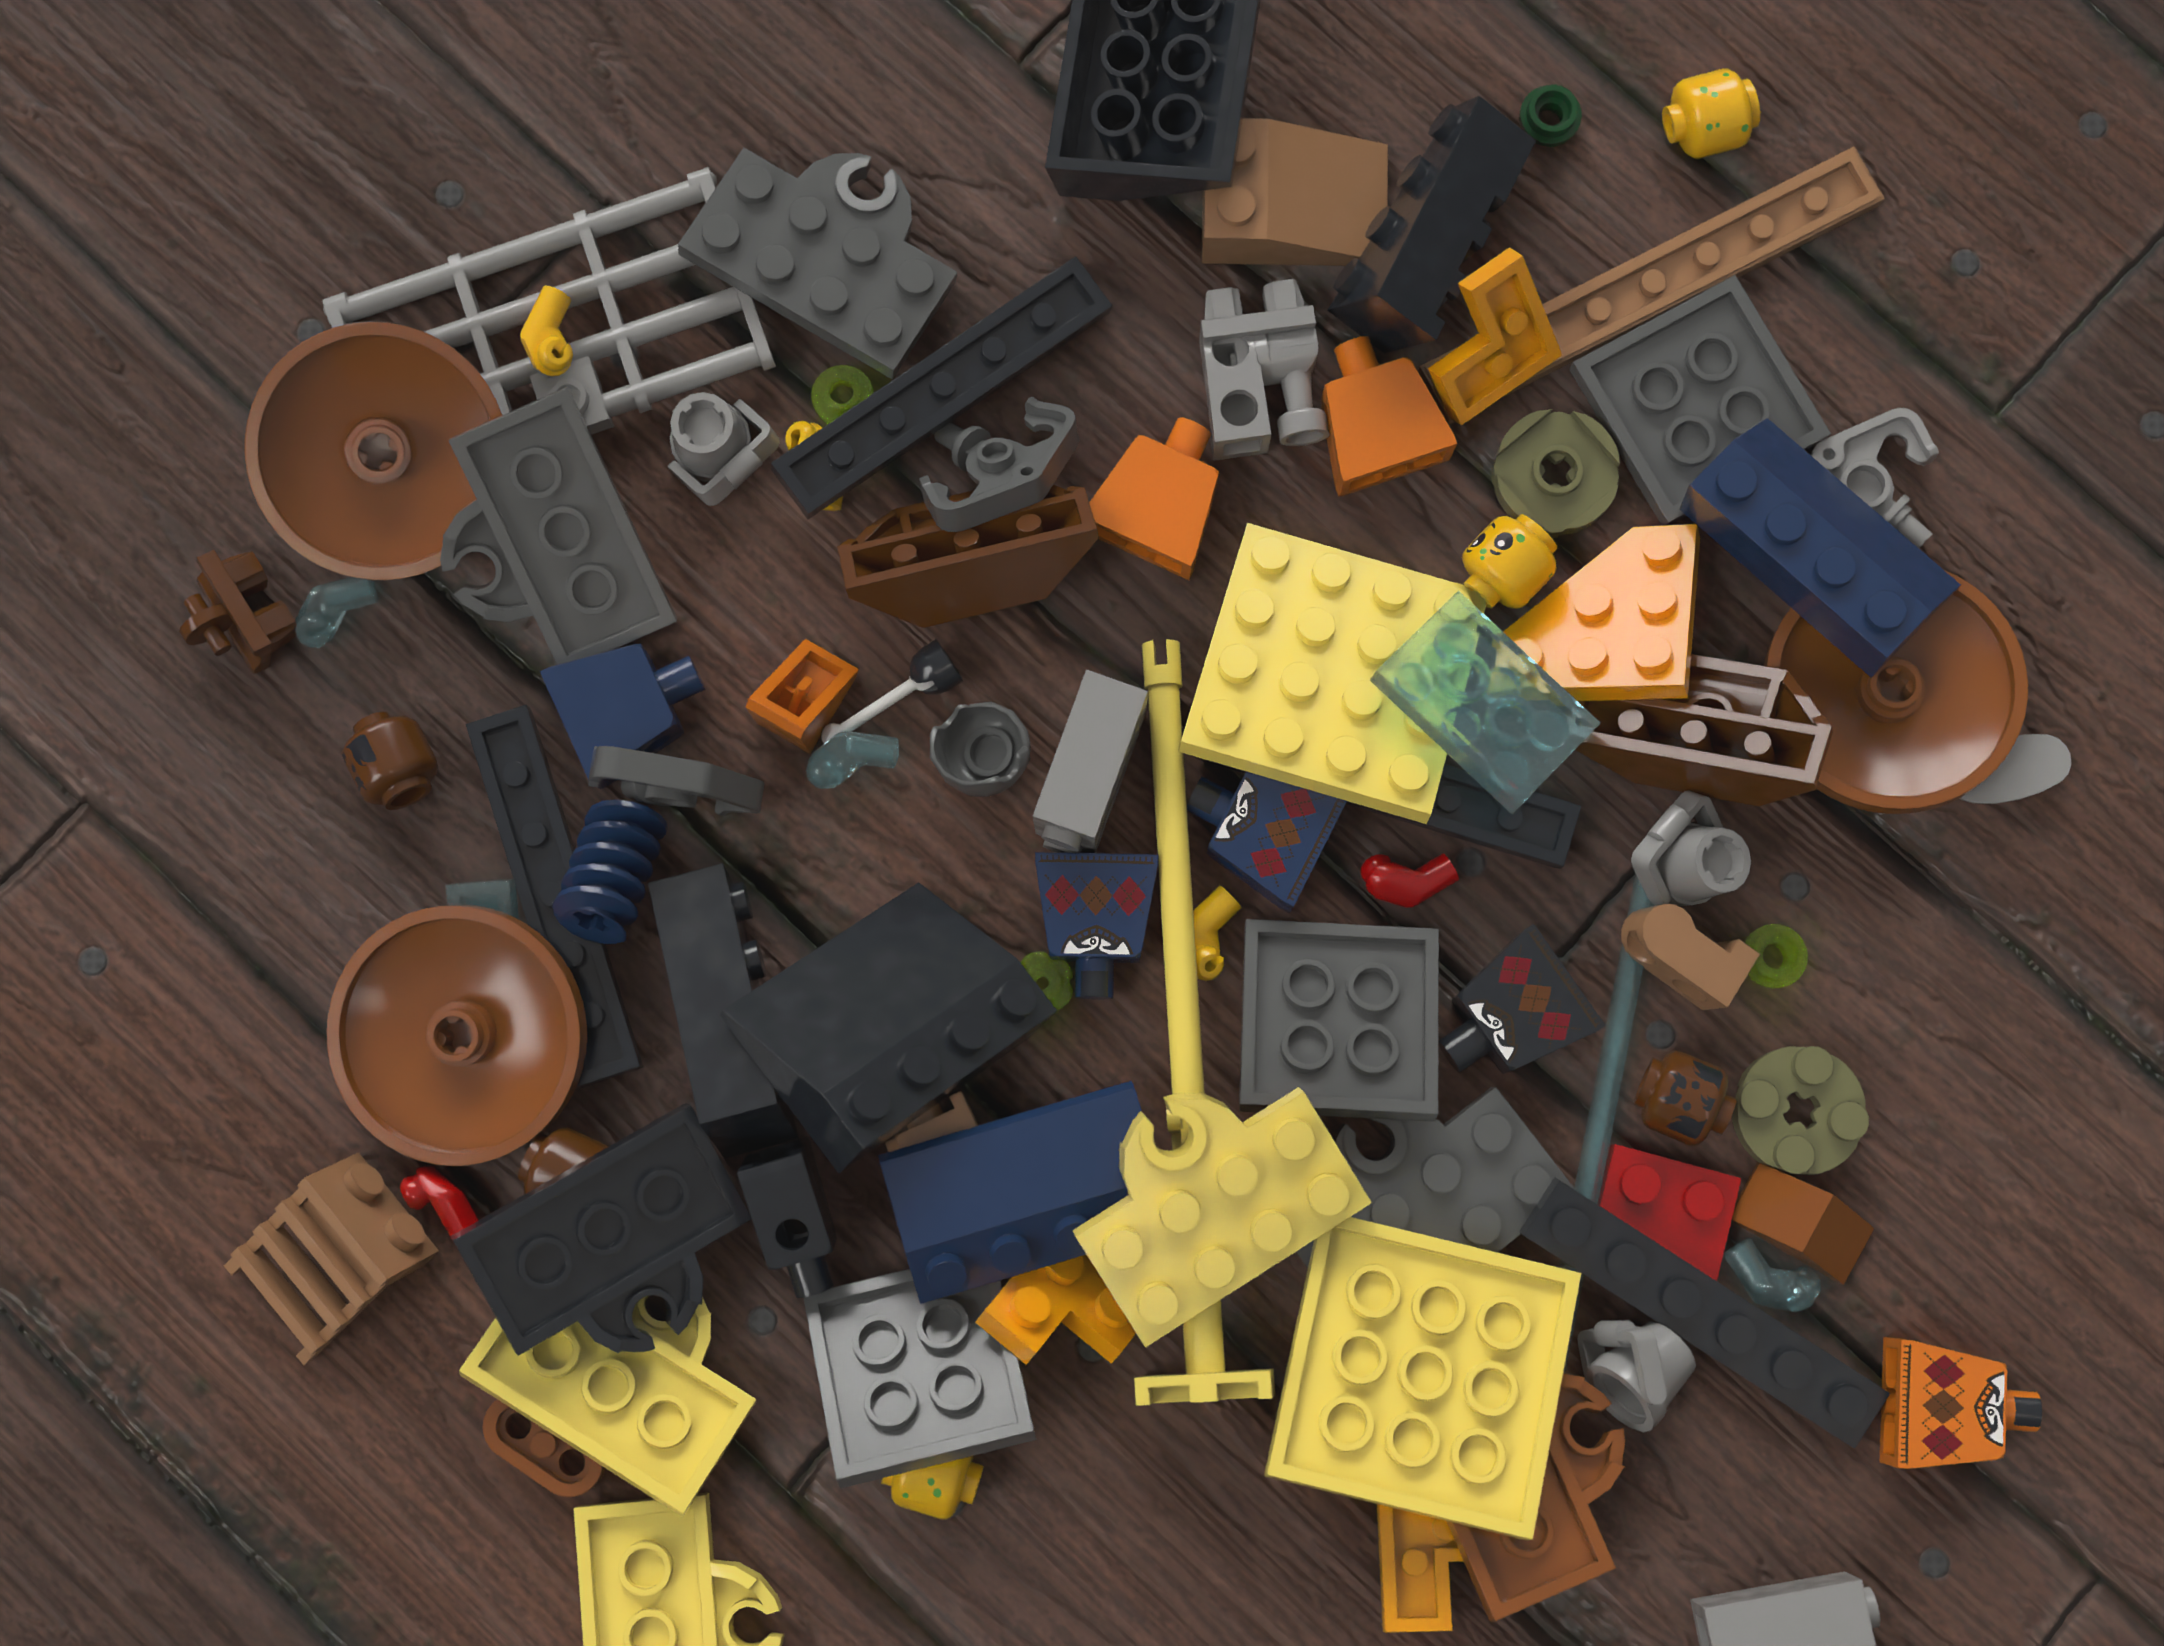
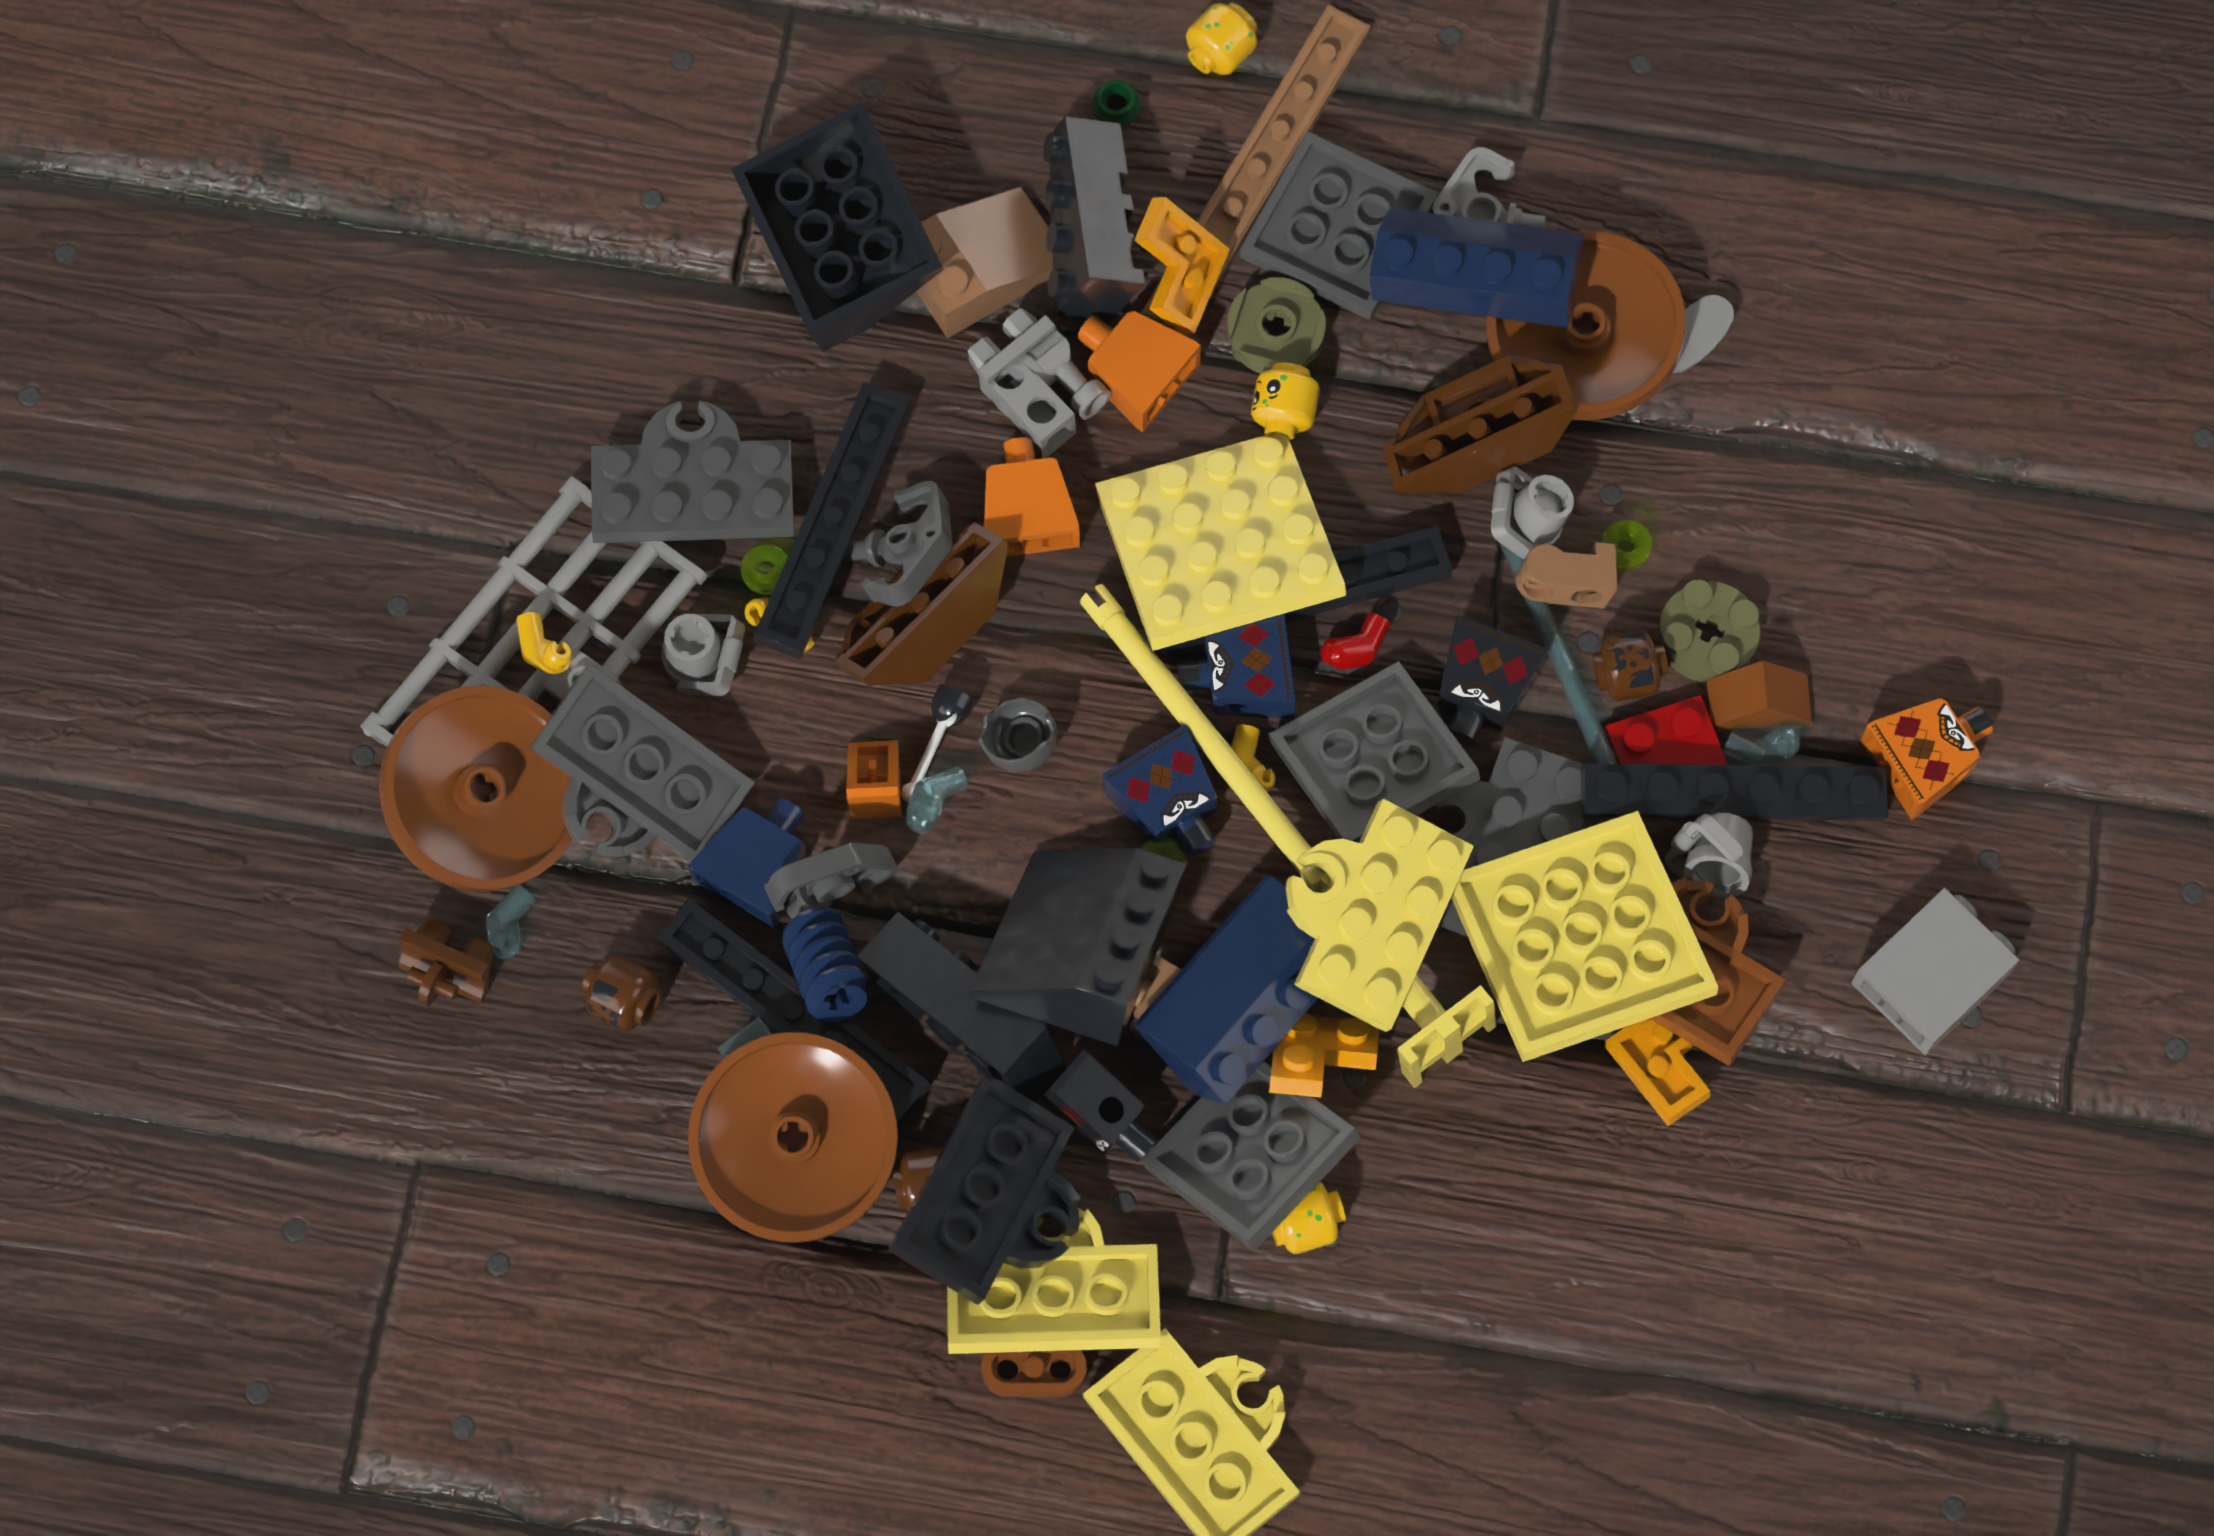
camera: 35 degrees left, 10 degrees down
(355, 1236) = (812, 1312): medium nougat plate -> none
(446, 1198) = (856, 1254): red arm -> none
(1089, 764) = (1099, 693): light grey brick -> none
(1484, 701) = (1331, 492): clear light blue plate -> none
(1621, 619) = (1378, 401): plate -> none

